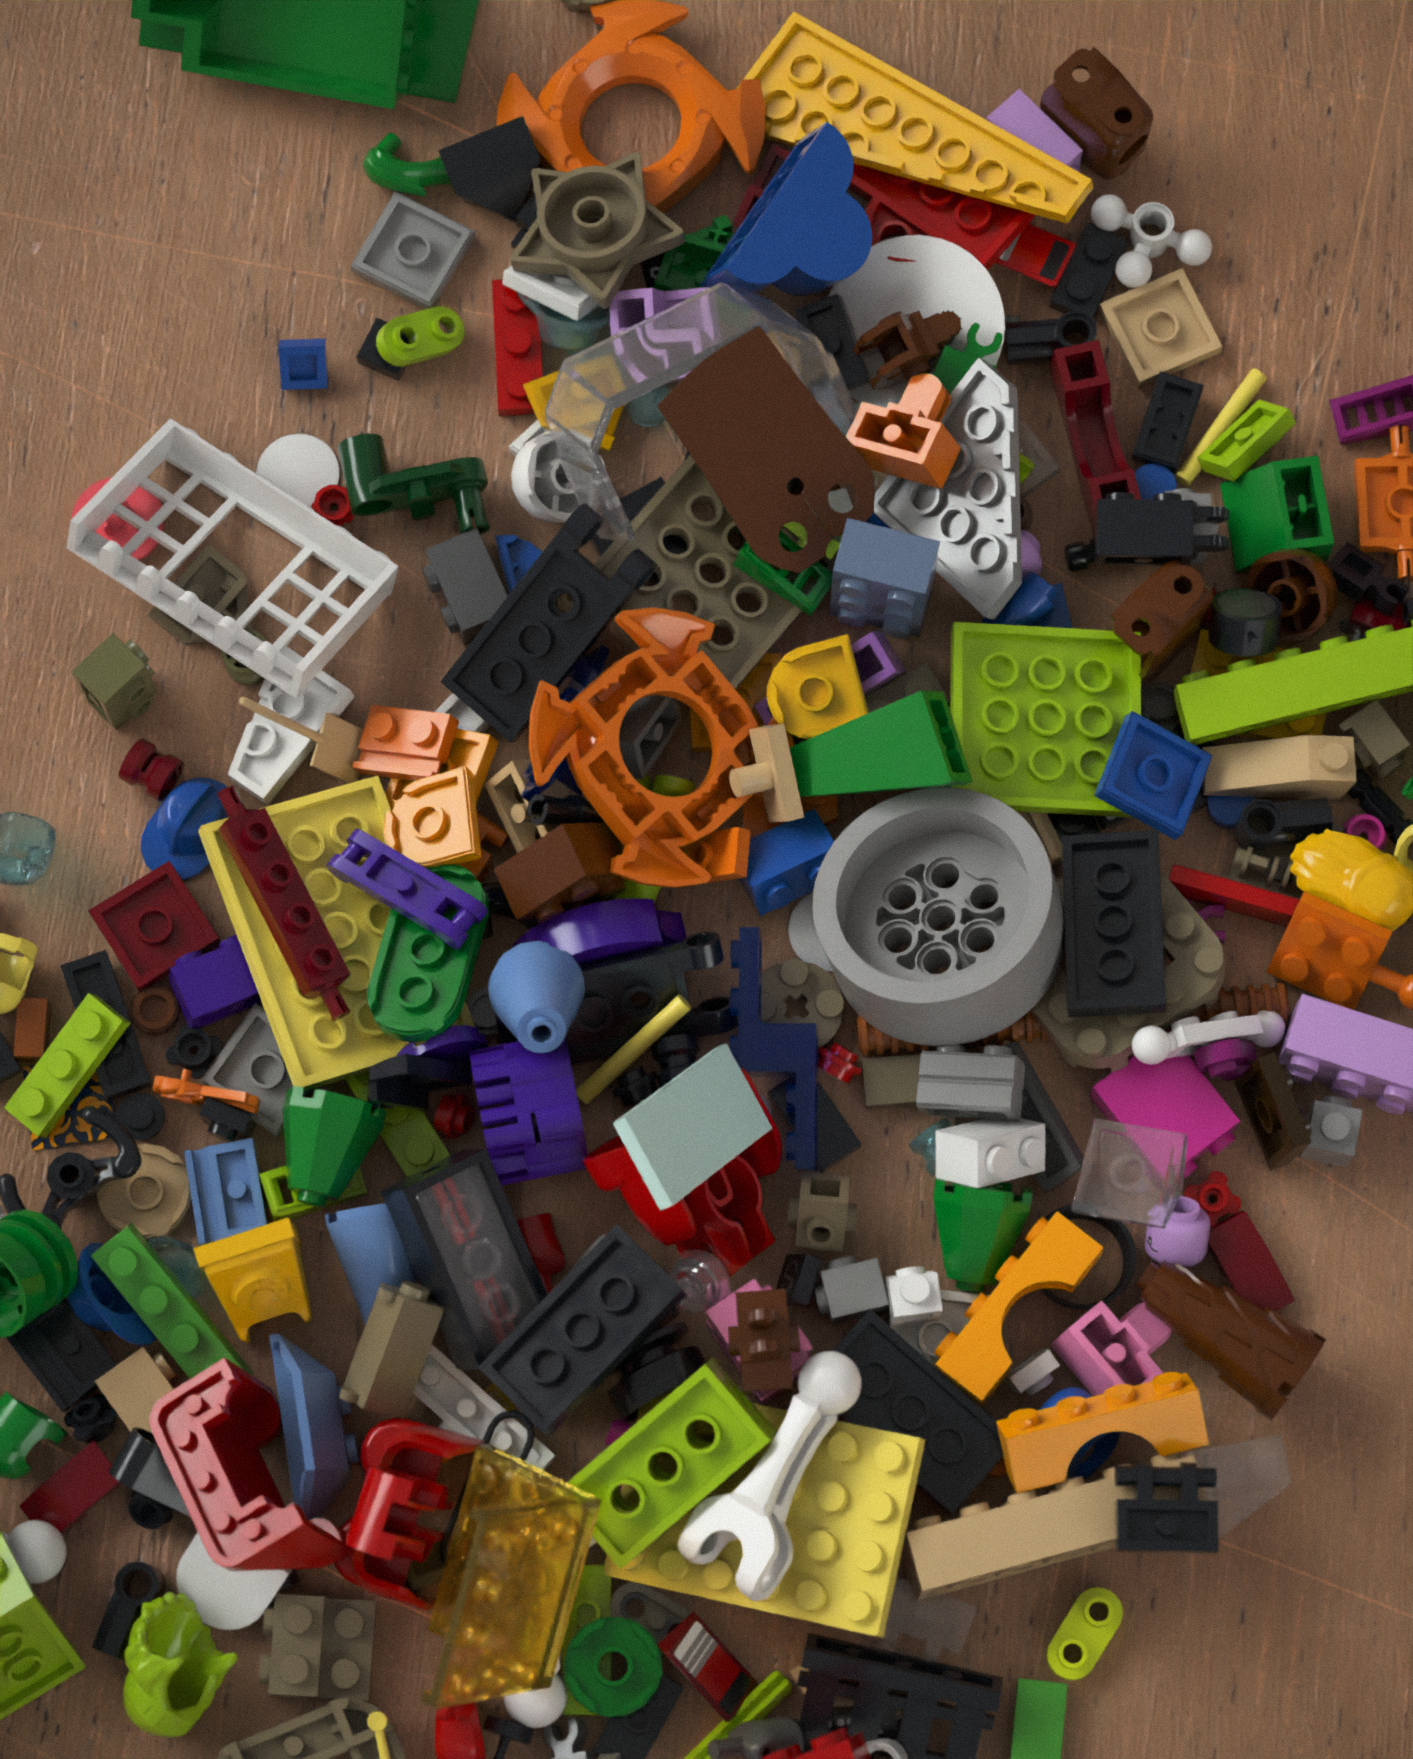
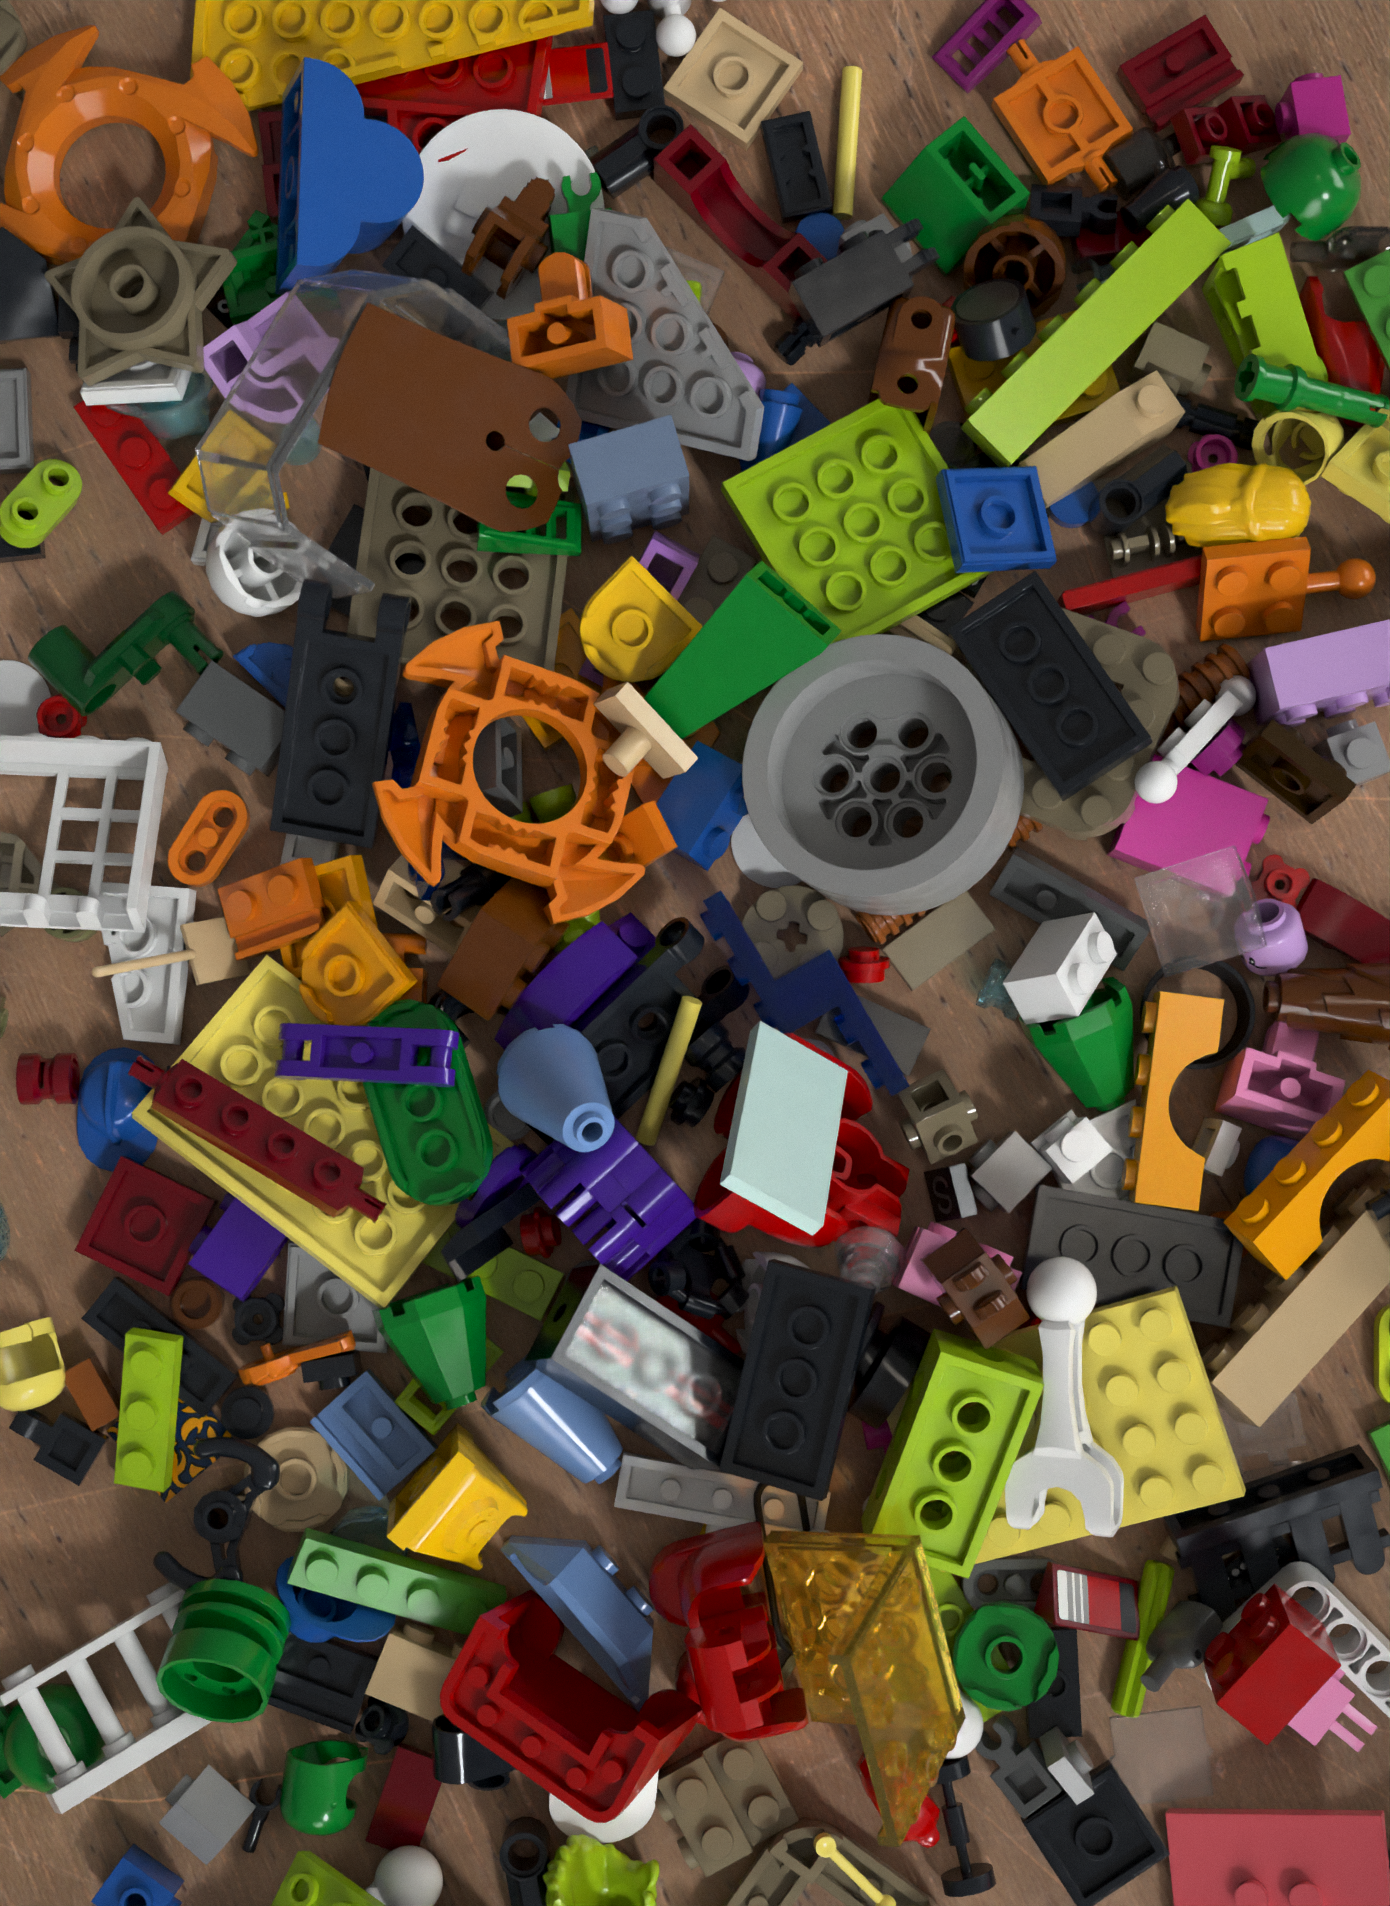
camera: 35 degrees left, 10 degrees up
(387, 660) = (204, 836): none -> orange plate
(392, 1349) = (625, 1498): dark tan brick -> none
(556, 1205) = (685, 1266): none -> black piece
(971, 1083) = (1003, 915): light grey brick -> none
(1246, 440) = (881, 141): lime plate -> none

